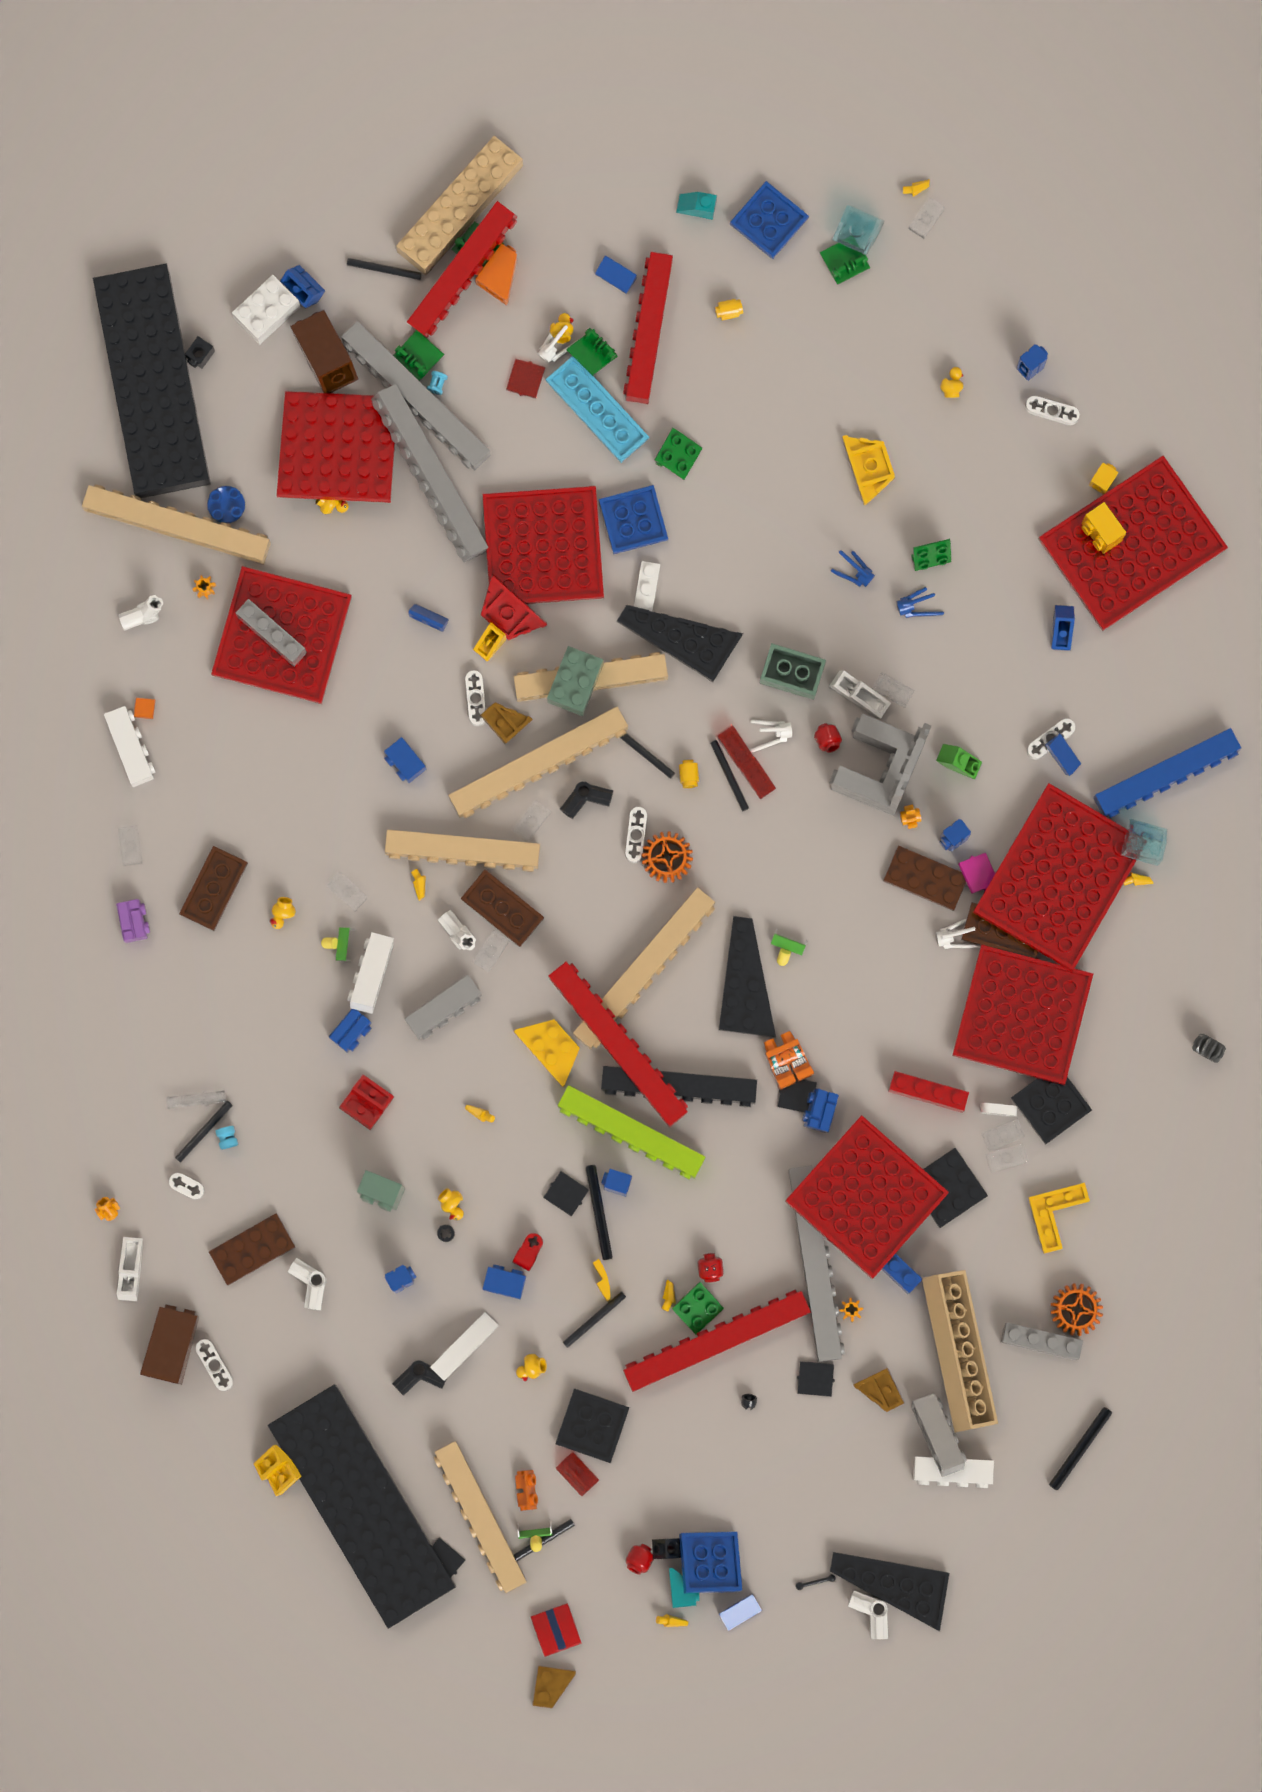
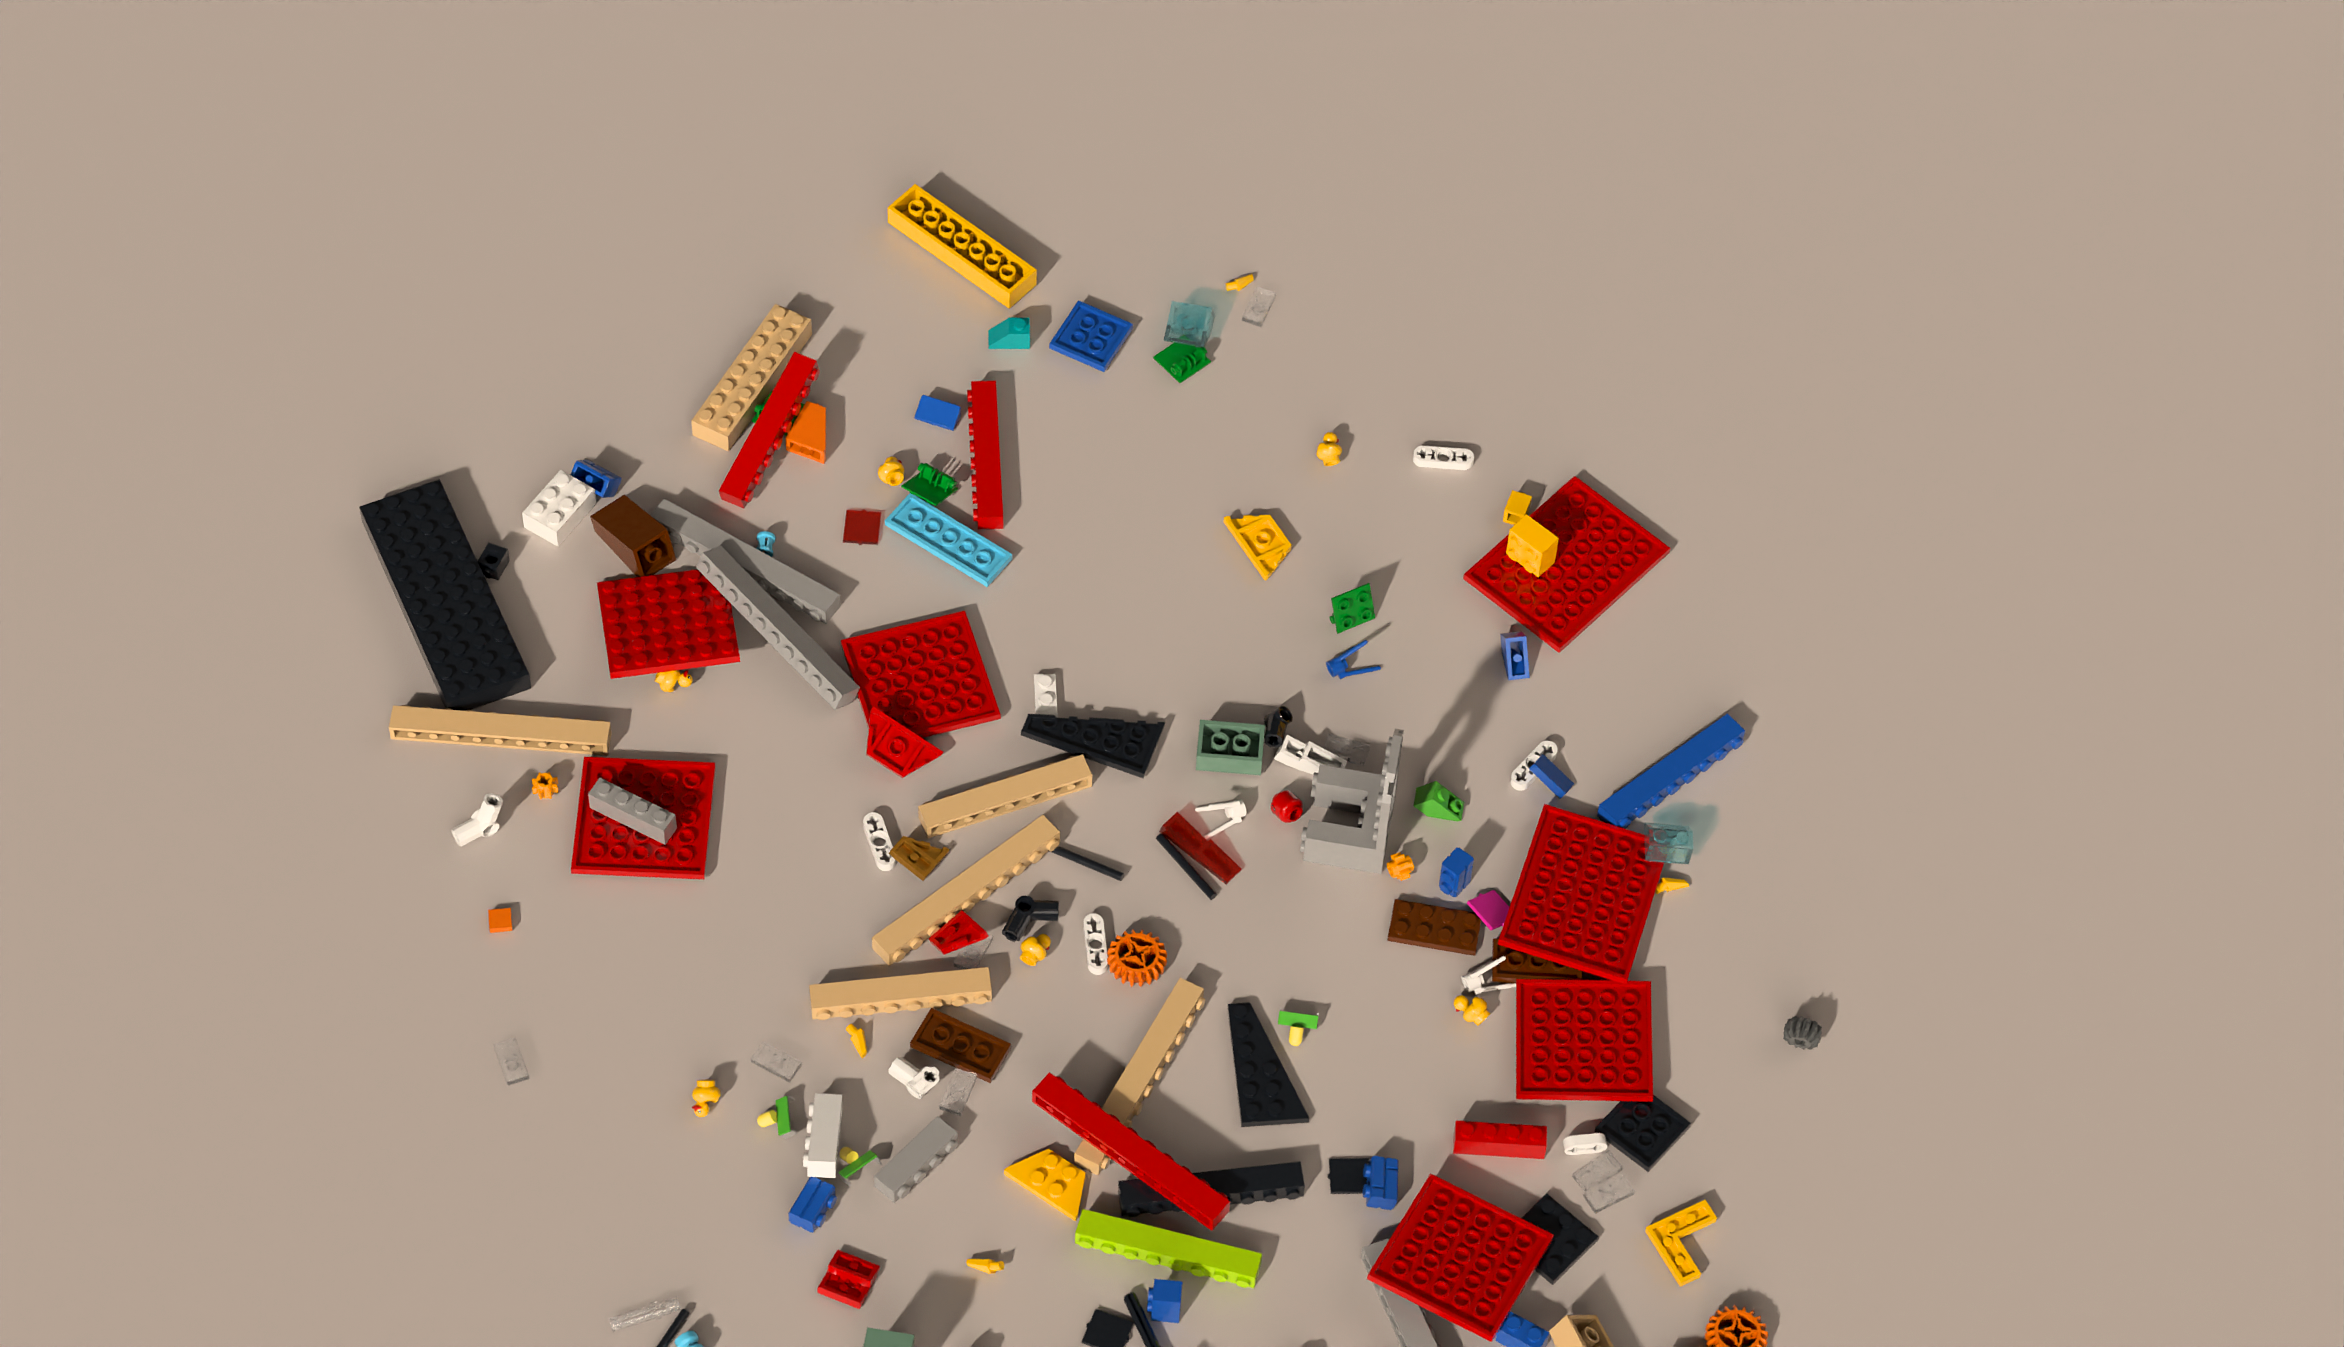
camera: 15 degrees left, 25 degrees down
(129, 746) = (490, 959): white brick -> none
(132, 920) = (530, 1138): medium lavender brick -> none
(213, 888) = (619, 1087): reddish brown plate -> none
(226, 504) = (553, 700): blue dish -> none
(384, 269) = (681, 451): black bar -> none
(393, 999) = (854, 1162): none -> piece
(404, 760) = (813, 915): blue brick -> none
(418, 355) = (739, 522): green hinge -> none
(428, 617) = (806, 773): blue slope -> none
(490, 642) = (884, 779): yellow slope -> none
(521, 804) = (957, 934): none -> red wing
(548, 351) = (881, 494): white plant -> none
(575, 681) = (990, 793): sand green brick -> none
(583, 833) = (1034, 949): none -> yellow animal
(633, 519) = (1014, 636): blue plate -> none
(674, 102) = (962, 246): none -> yellow brick
(678, 453) = (1047, 566): green hinge -> none
(689, 774) = (1140, 870): yellow brick -> none
(729, 309) = (1069, 423): yellow brick -> none
(785, 1055) = (1329, 1139): orange hips -> none
(838, 655) = (1276, 726): none -> black piece
(864, 575) = (1283, 644): blue plant -> none
(938, 967) = (1475, 1012): none -> yellow animal
(1032, 361) = (1409, 412): blue brick -> none

